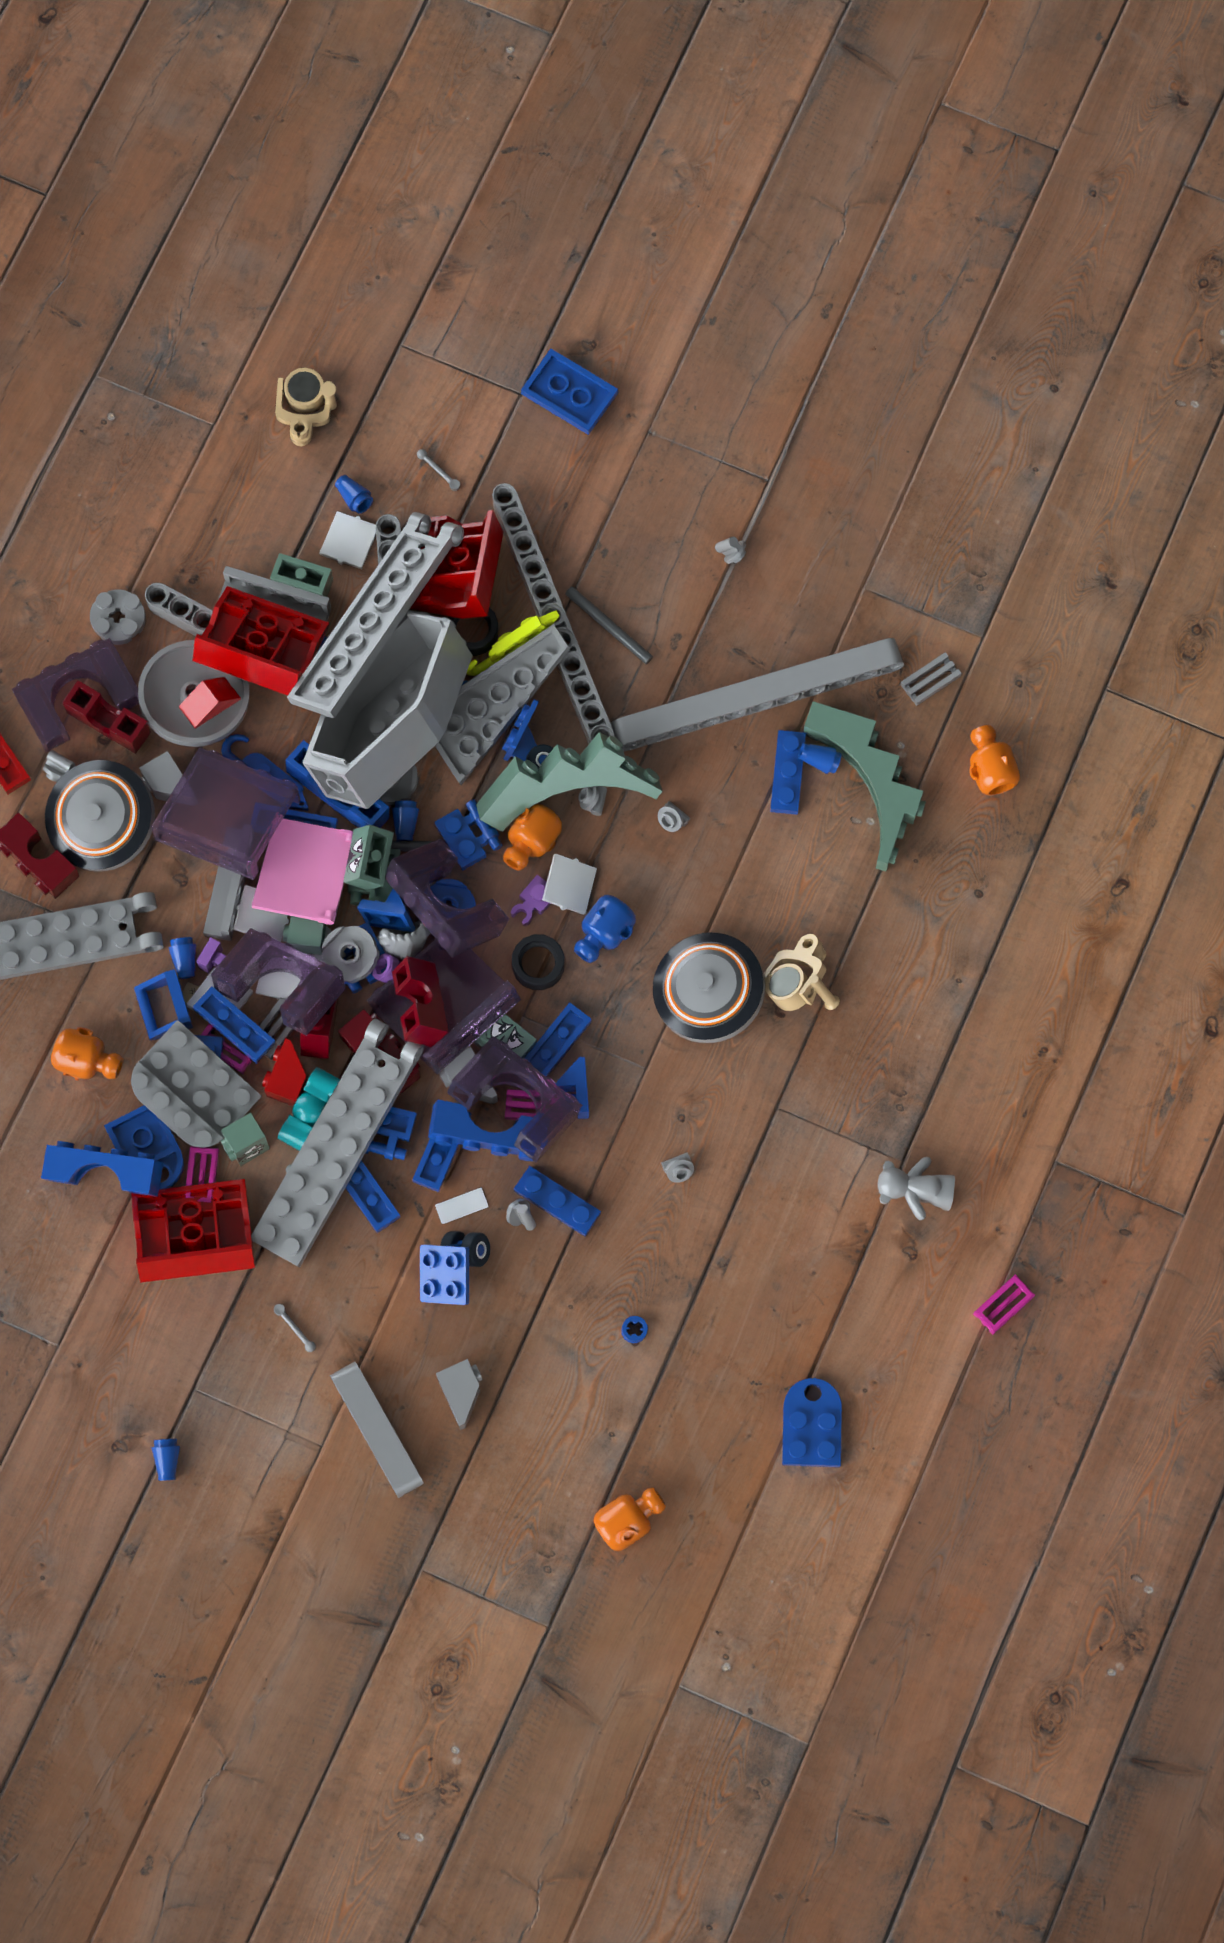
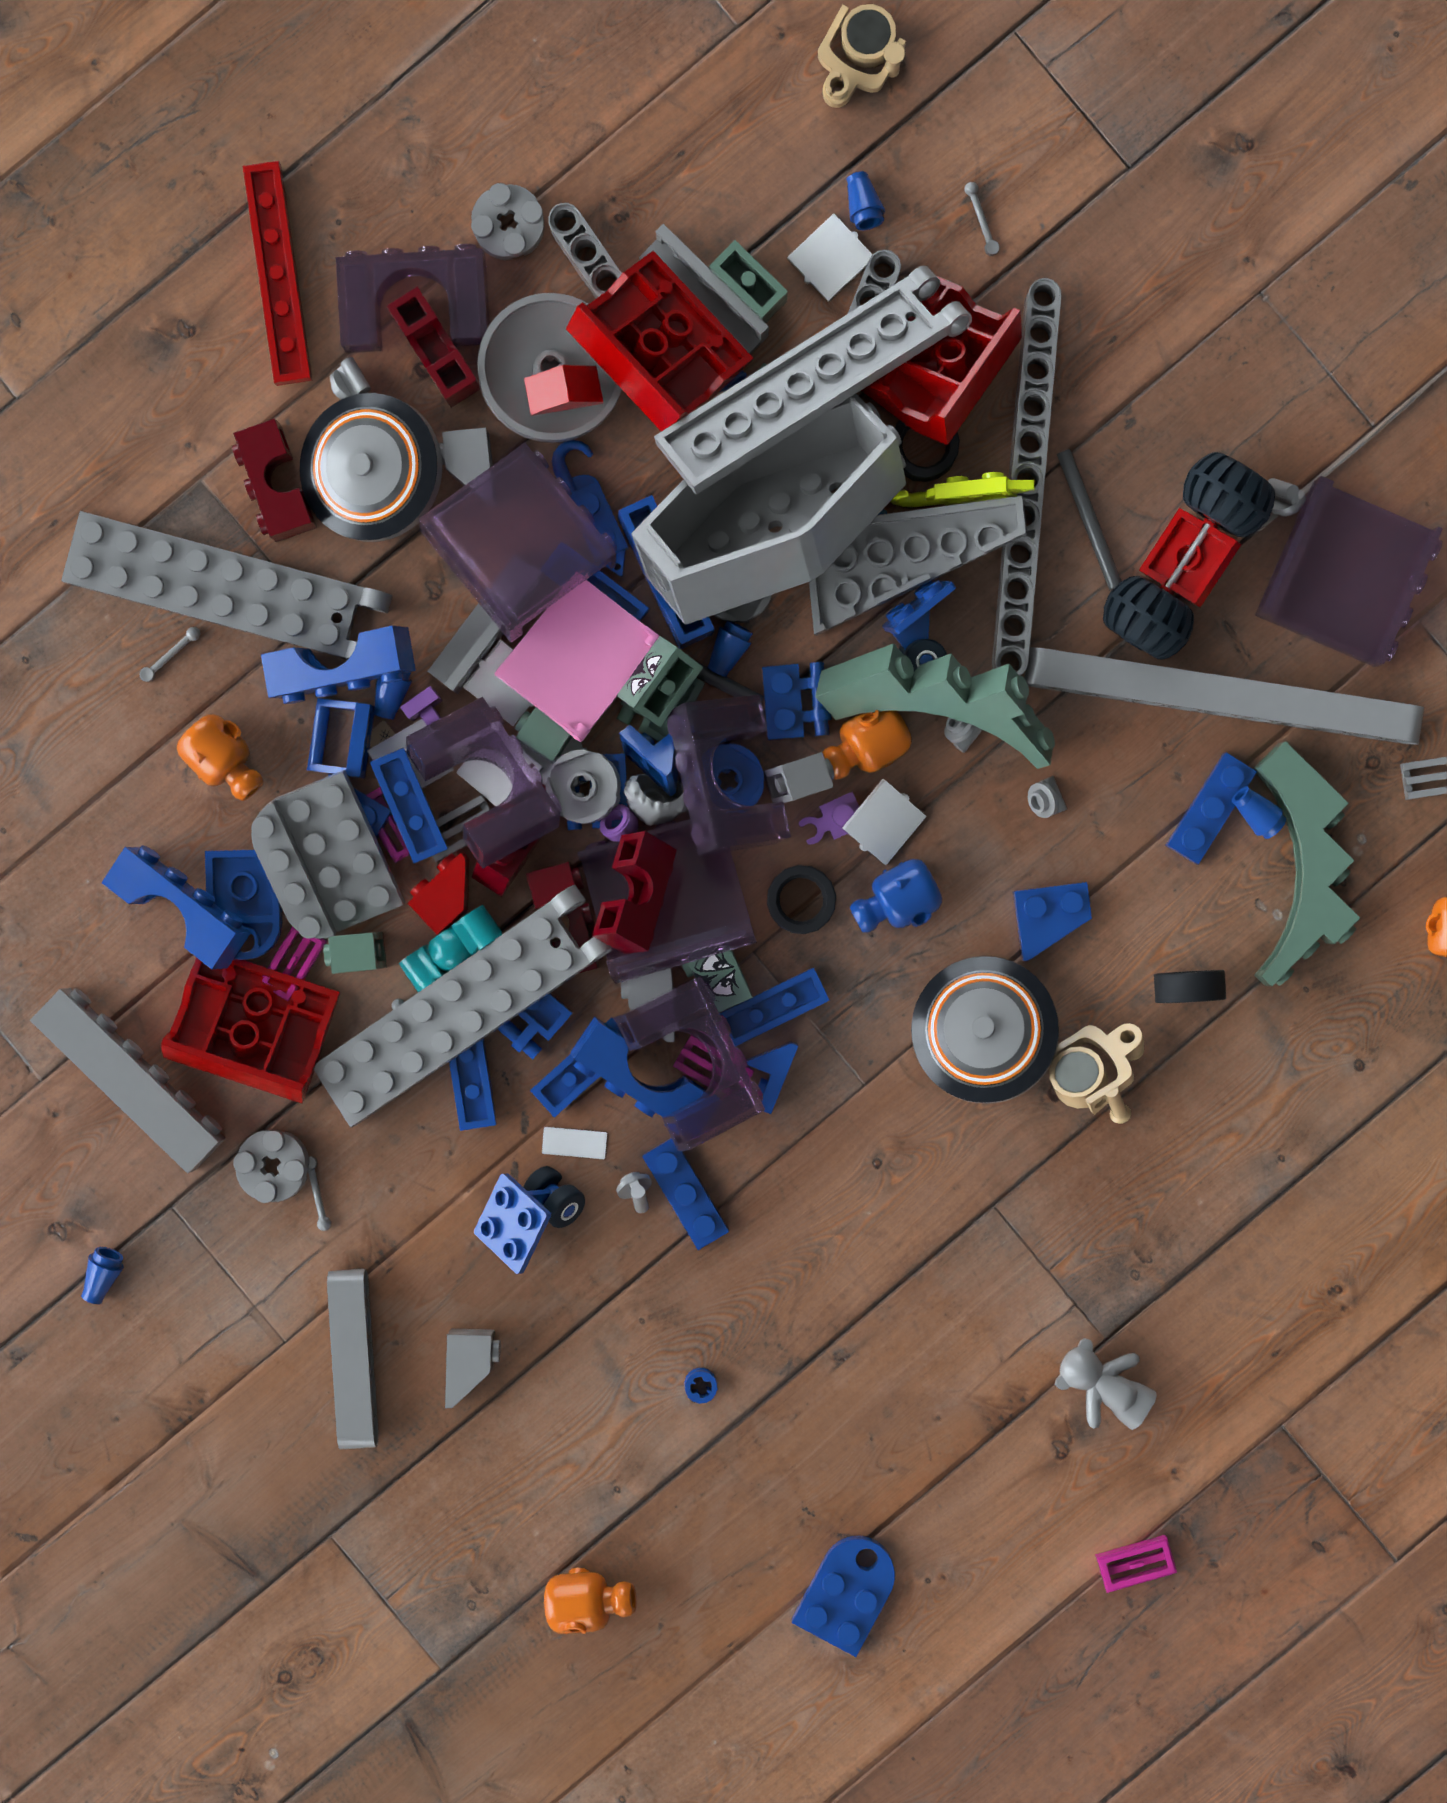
camera: 30 degrees right, 15 degrees up
(6, 1027) = (148, 674): none -> light grey hinge
(122, 1309) = (128, 1079): none -> light grey brick
(166, 931) = (378, 655): none -> arch
(248, 1306) = (292, 1168): none -> light grey plate
(495, 877) = (799, 778): none -> light grey slope
(569, 391) = (1190, 194): blue plate -> none
(678, 1168) = (844, 1223): light grey plate -> none
(687, 614) = (1189, 555): none -> black plate
(714, 892) = (1049, 915): none -> blue wing
(800, 579) = (1349, 574): none -> clear purple panel
(832, 890) = (1190, 986): none -> black tyre

